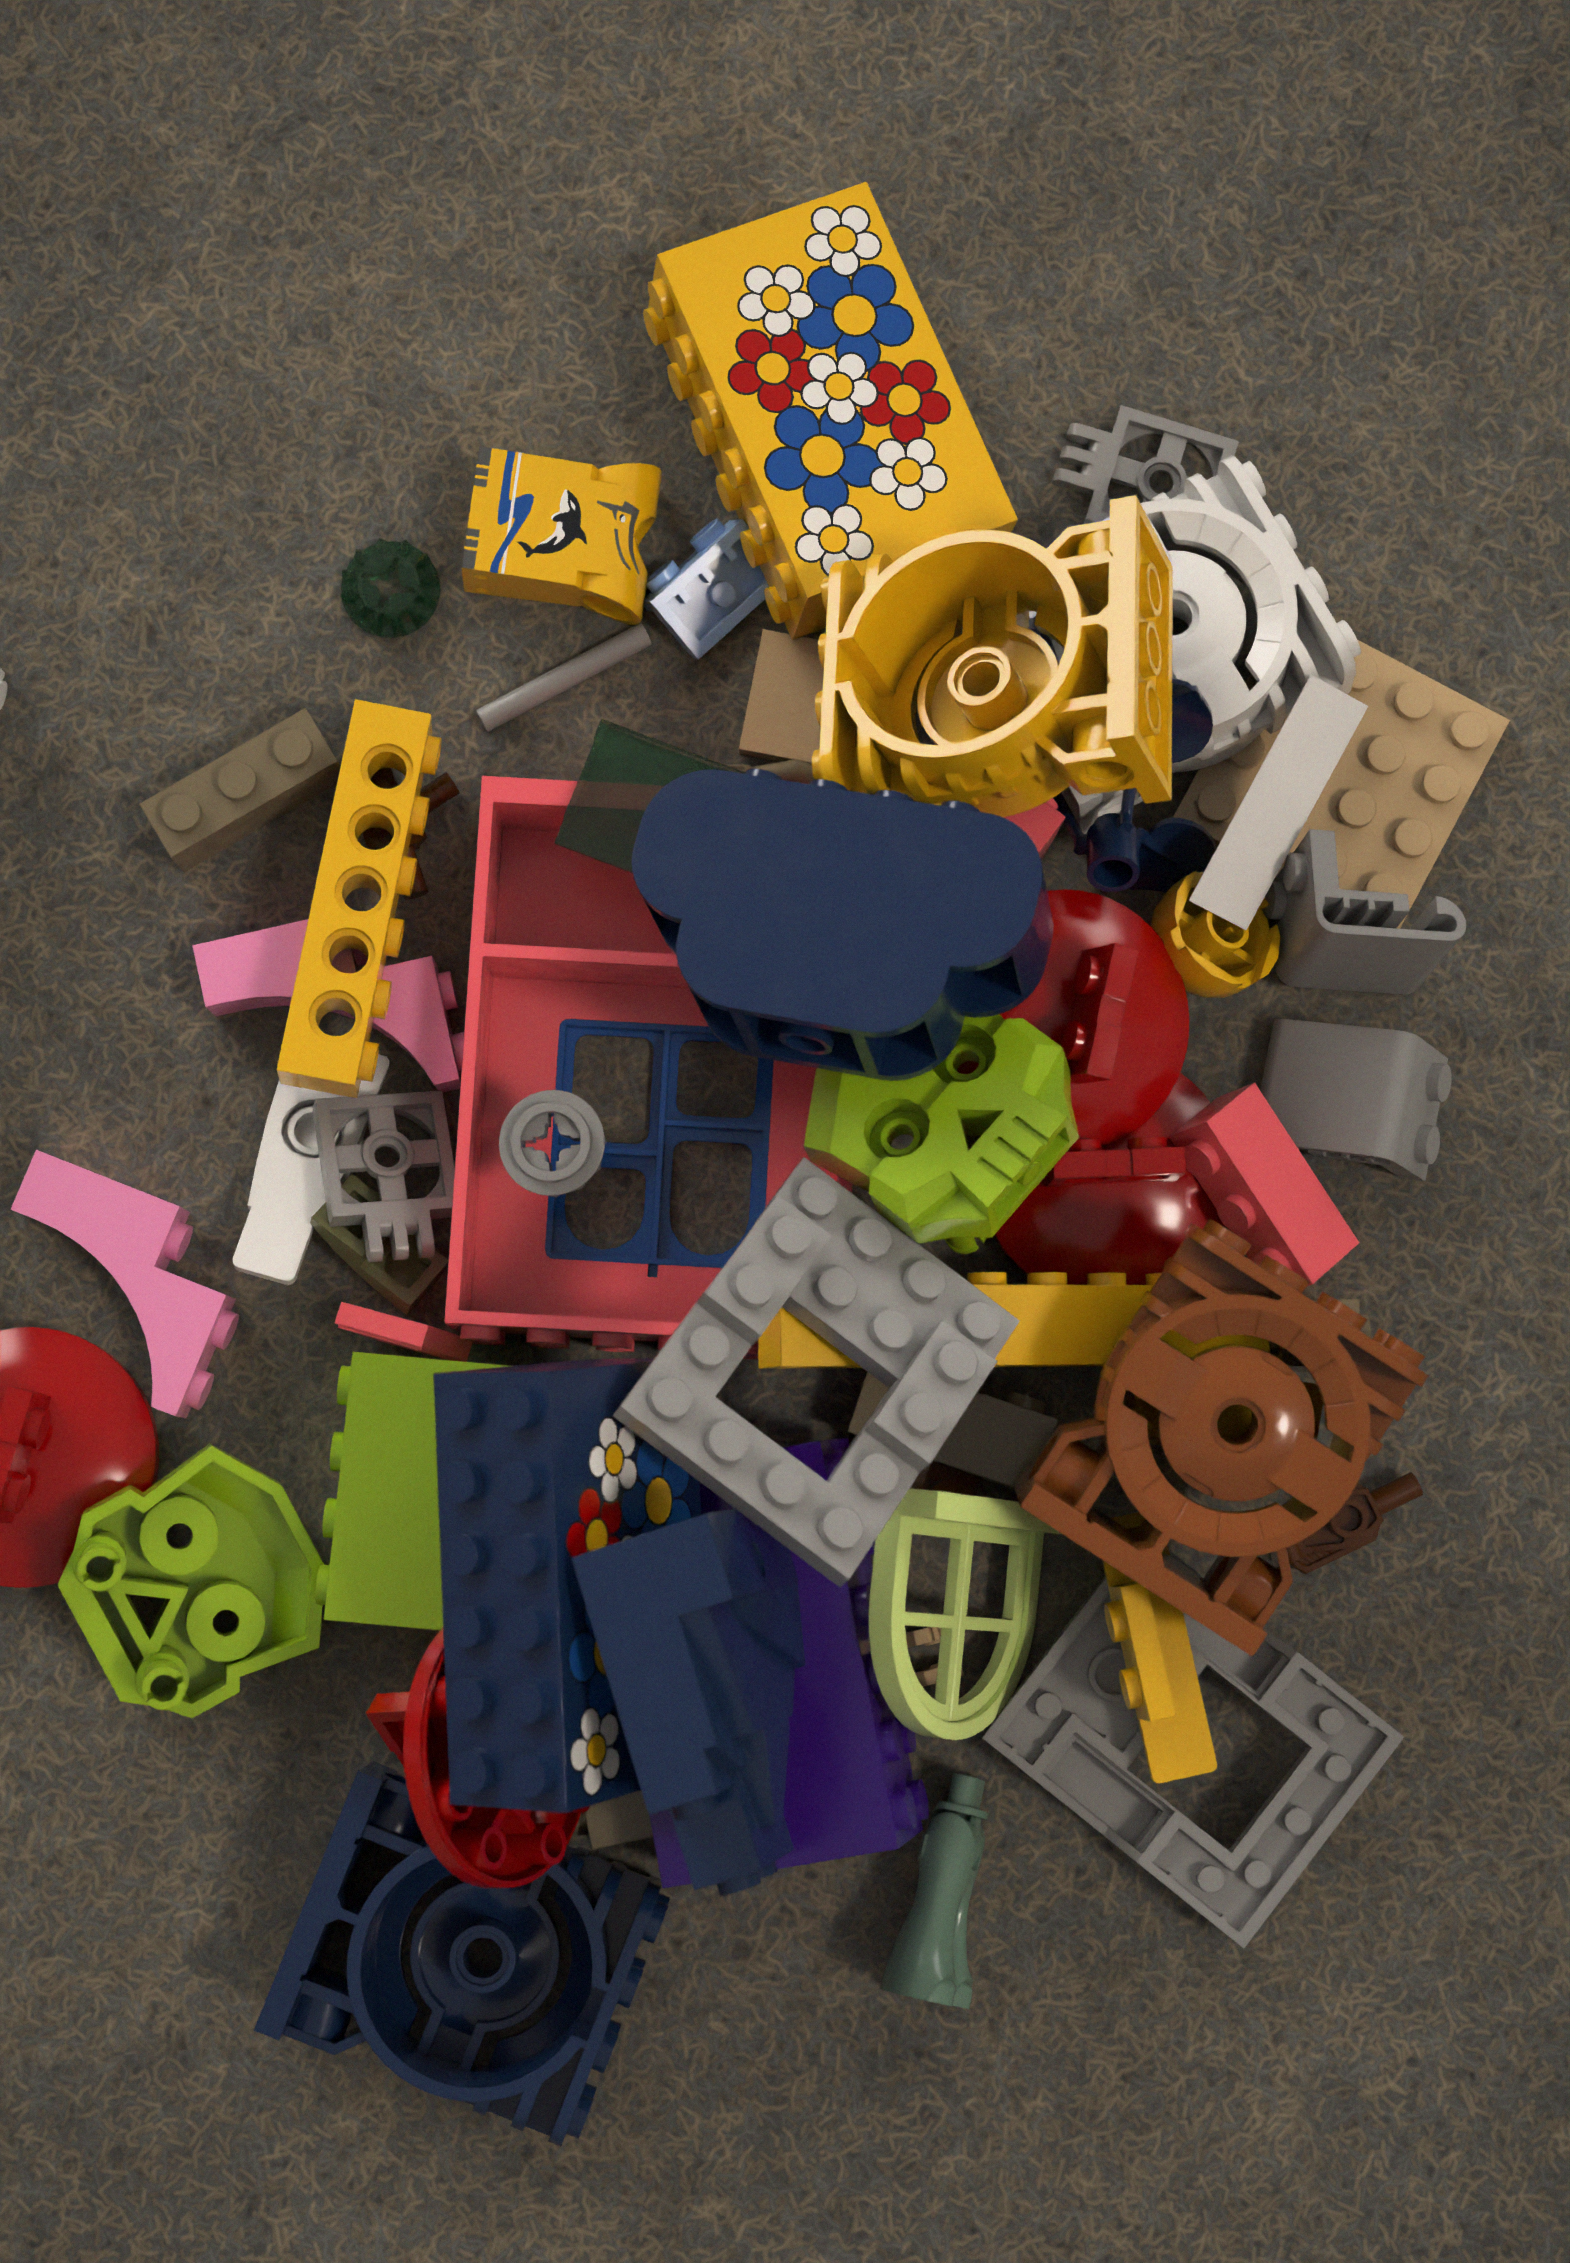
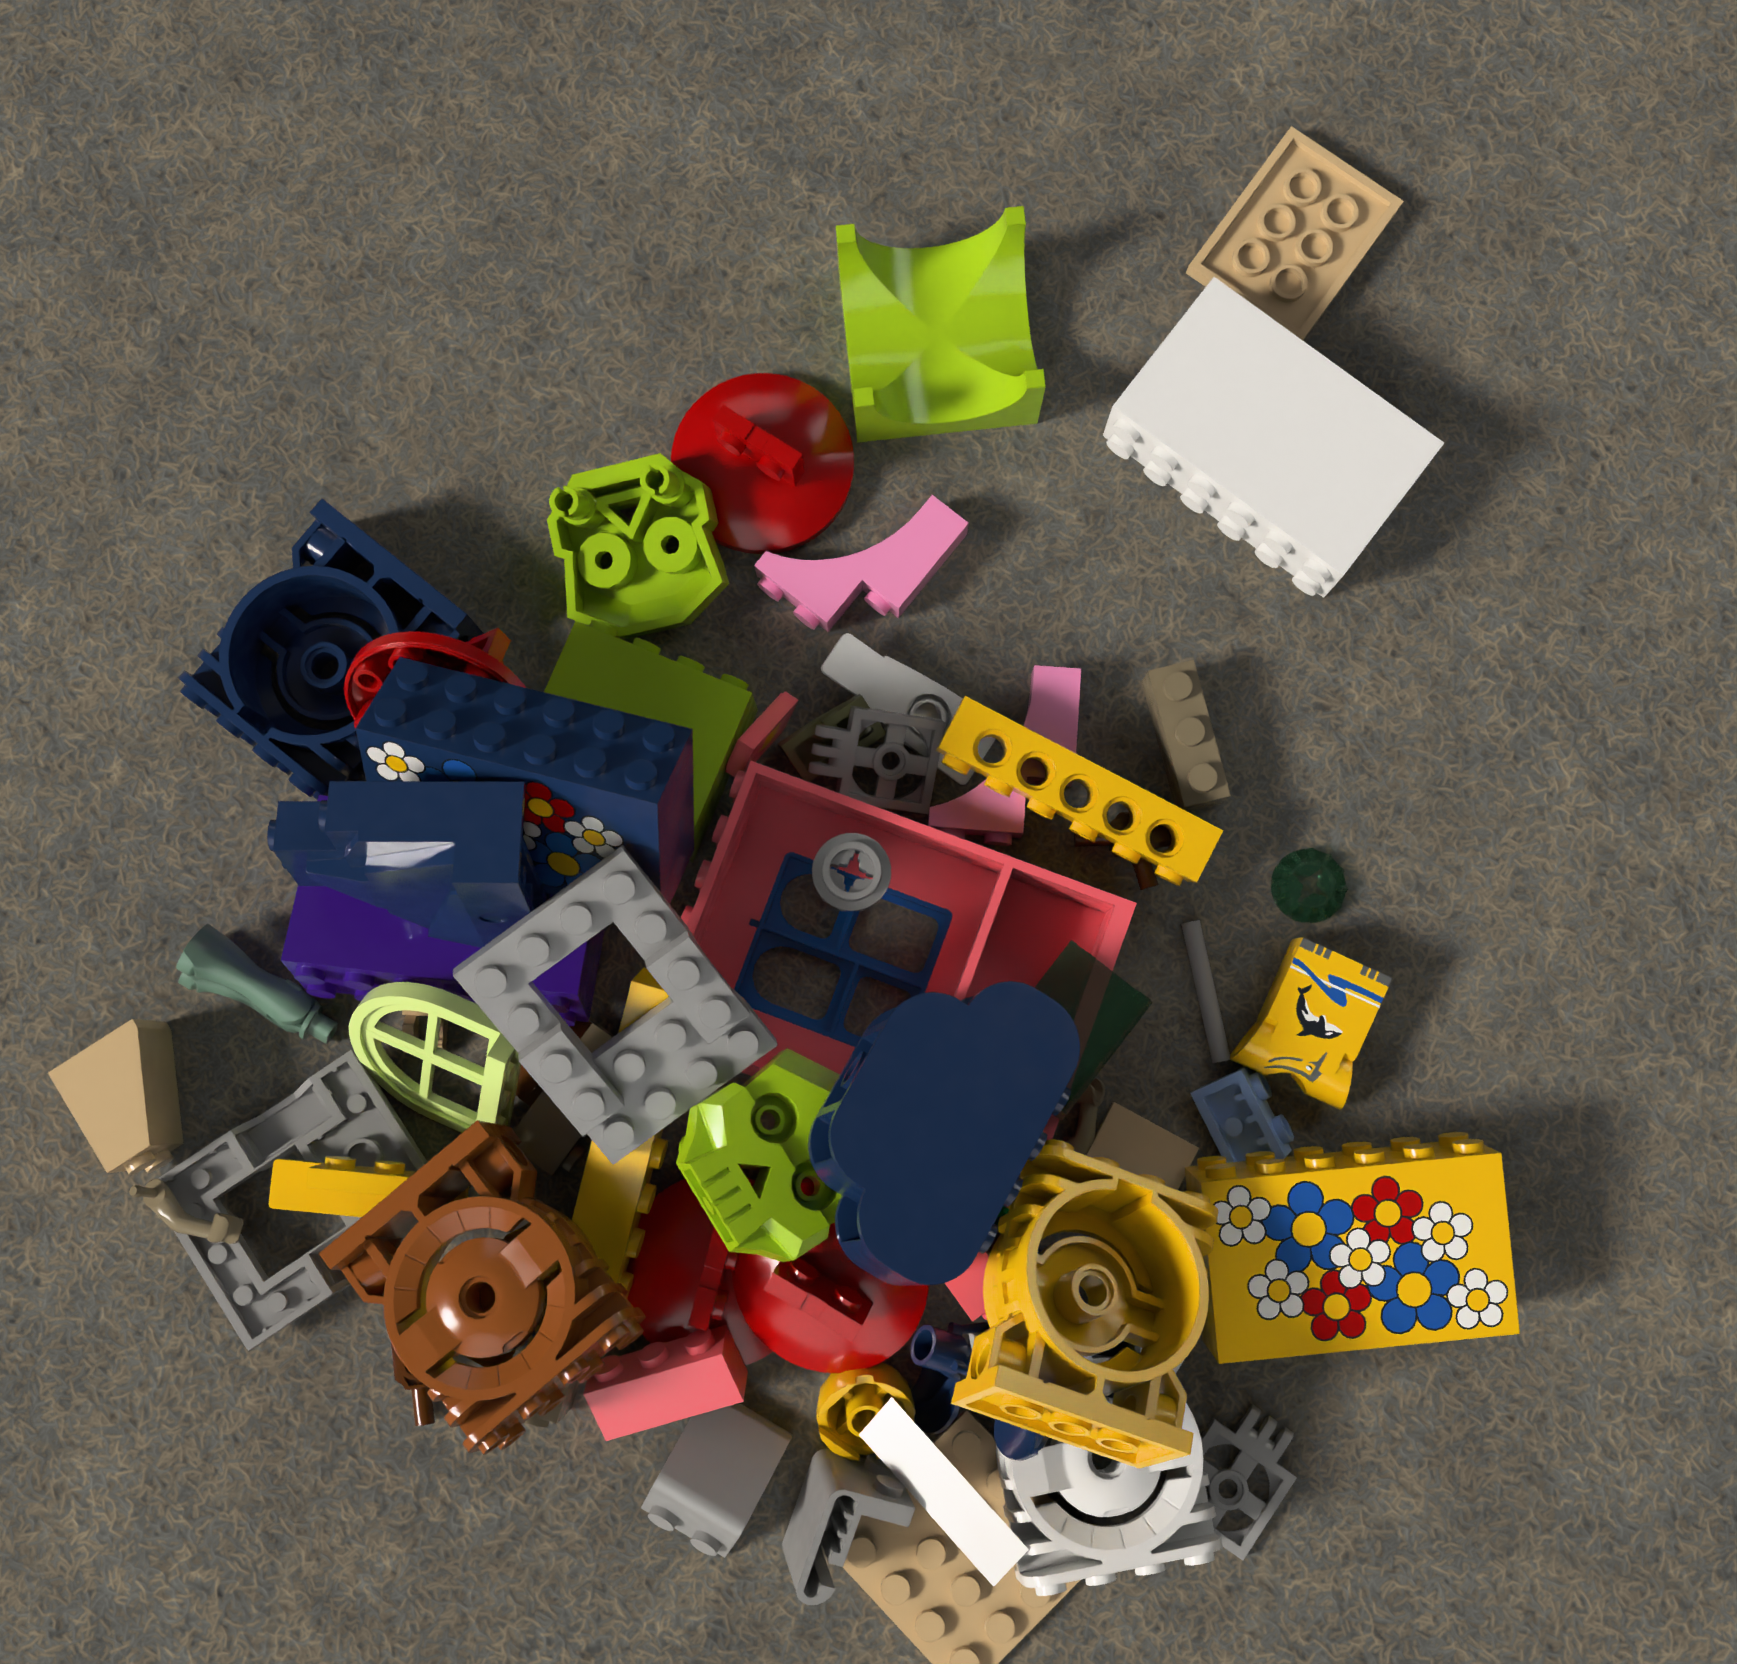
camera: 115 degrees right, 0 degrees up
(1140, 2018) = (126, 1096): none -> tan slope
(1258, 1912) = (163, 1203): none -> dark tan piece

